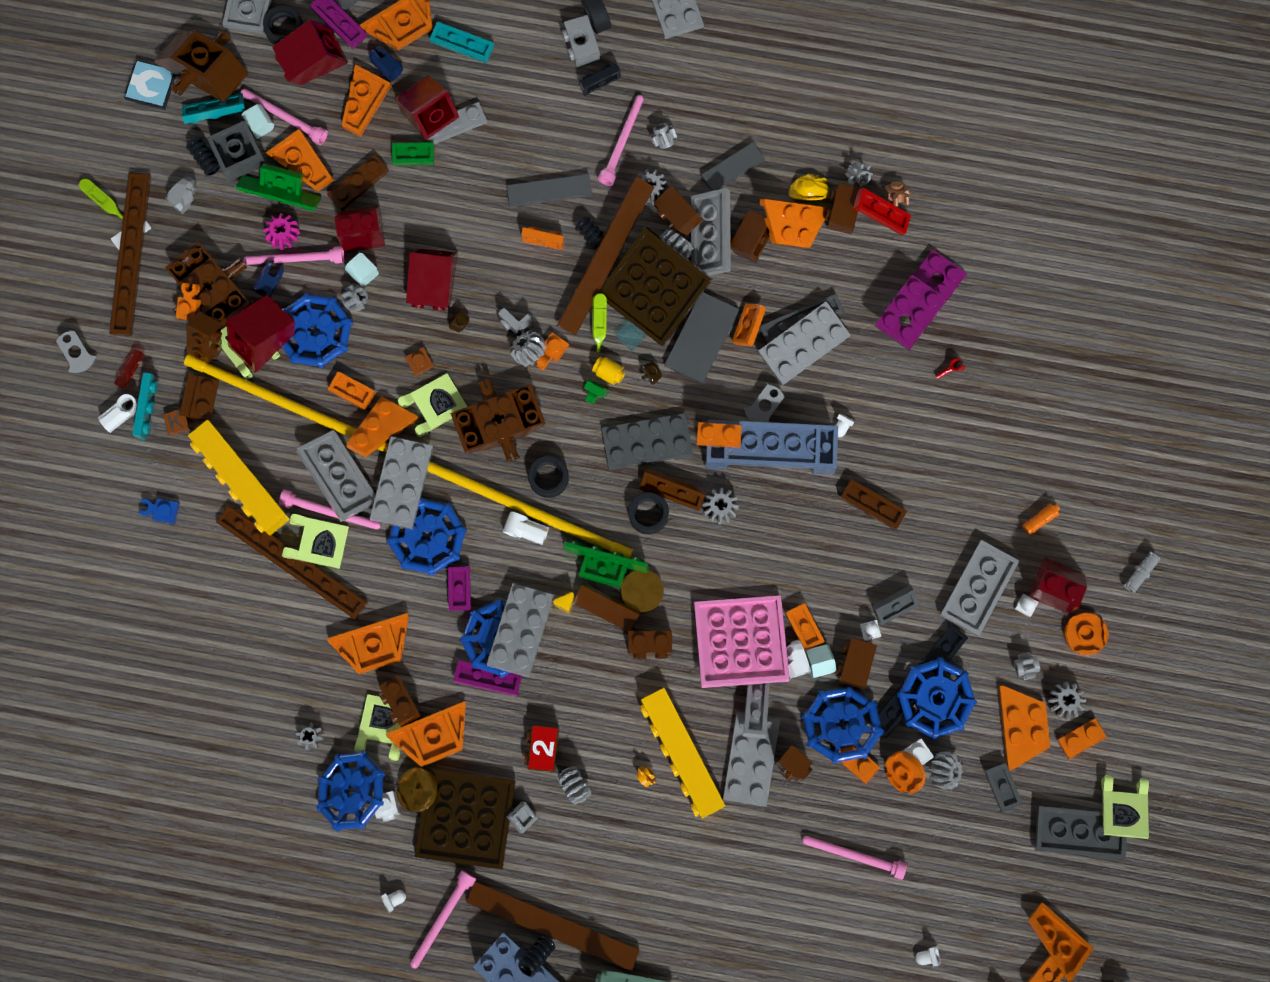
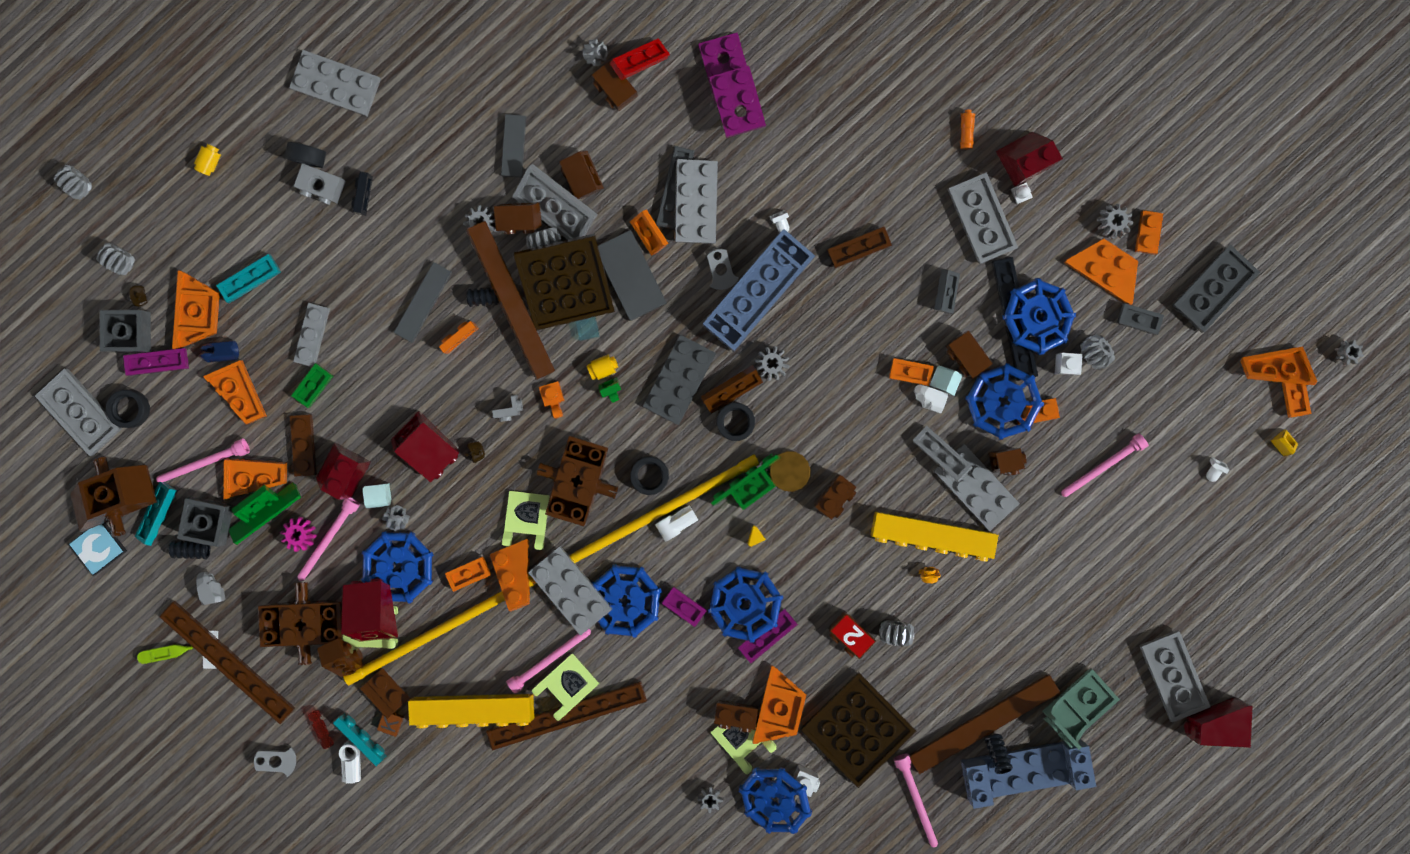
camera: 55 degrees left, 10 degrees up
(163, 511) = (453, 783): blue plate -> none
(188, 305) = (305, 652): orange plate -> none
(258, 120) = (192, 486): light aqua piece -> none
(266, 281) = (330, 574): dark blue piece -> none
(309, 53) = (166, 405): dark red slope -> none
(337, 475) = (526, 634): light grey plate -> none
(373, 645) = (677, 701): orange wing -> none
(393, 899) = (876, 825): white piece -> none
(417, 789) = (810, 750): pearl gold tile -> none
(419, 362) = (484, 505): dark orange plate -> none
(427, 107) = (282, 347): dark red slope -> none
(520, 630) = (752, 586): light grey plate -> none
(522, 817) = (889, 688): light grey tile -> none
(528, 348) = (538, 416): light grey gear -> none
(599, 319) = (556, 343): lime piece -> none
(606, 607) = (783, 507): reddish brown tile -> none
(607, 175) = (445, 247): bright pink piece -> none
(651, 372) = (629, 335): dark brown piece -> none
(663, 136) = (447, 180): light grey gear -> none
(719, 435) = (721, 325): orange plate -> none
(741, 641) = (886, 428): bright pink plate -> none
(793, 222) = (595, 135): orange wing -> none
(809, 188) = (576, 99): yellow hat -> none
(870, 630) = (950, 324): white piece -> none
(897, 193) = (633, 34): nougat plate -> none
(905, 772) = (1075, 383): orange tile -> none
(949, 369) = (801, 103): red hand -> none
(1026, 666) = (1067, 230): light grey gear -> none
(1085, 633) = (1077, 166): orange tile -> none
(1125, 812) = (1228, 244): yellowish green flag -> none
(1142, 572) = (1065, 87): light grey pin -> none

